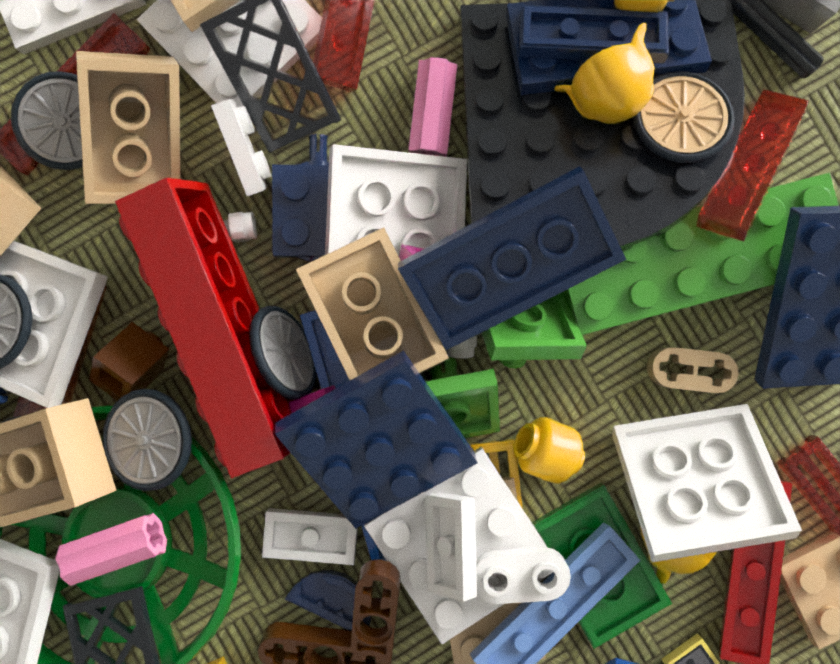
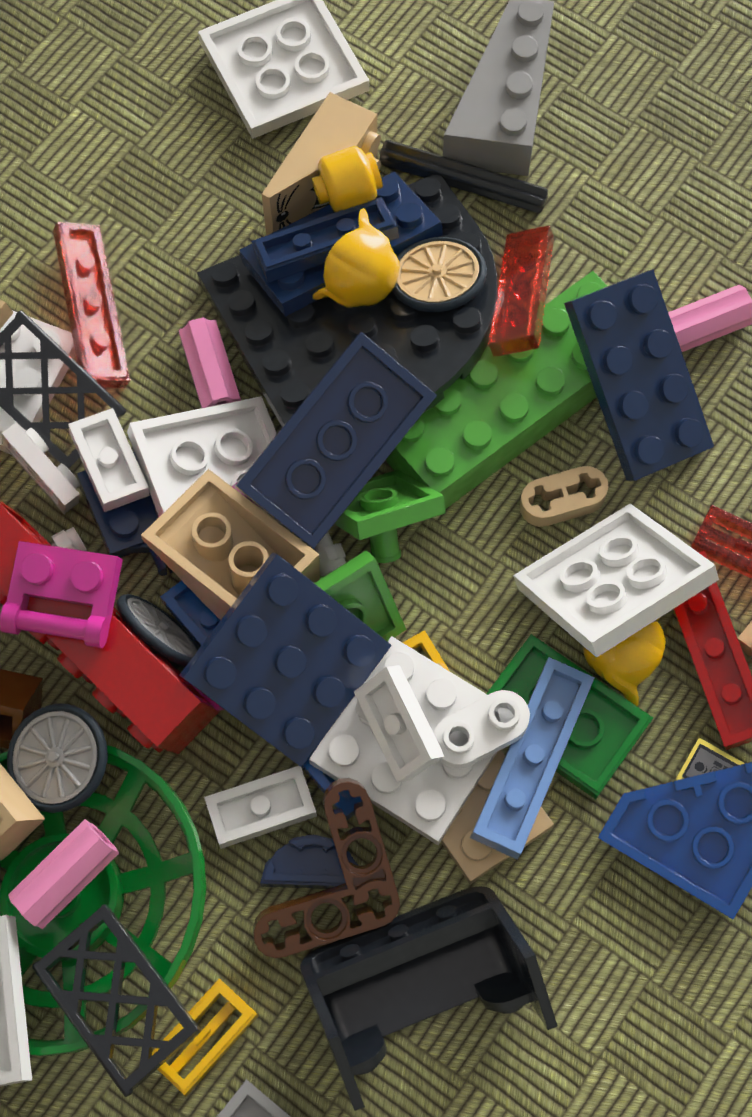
camera: 20 degrees left, 20 degrees down
(204, 294) = (62, 577): none -> dark pink plate
(301, 169) = (108, 460): none -> white plate
(549, 450) = (460, 620): yellow head -> none

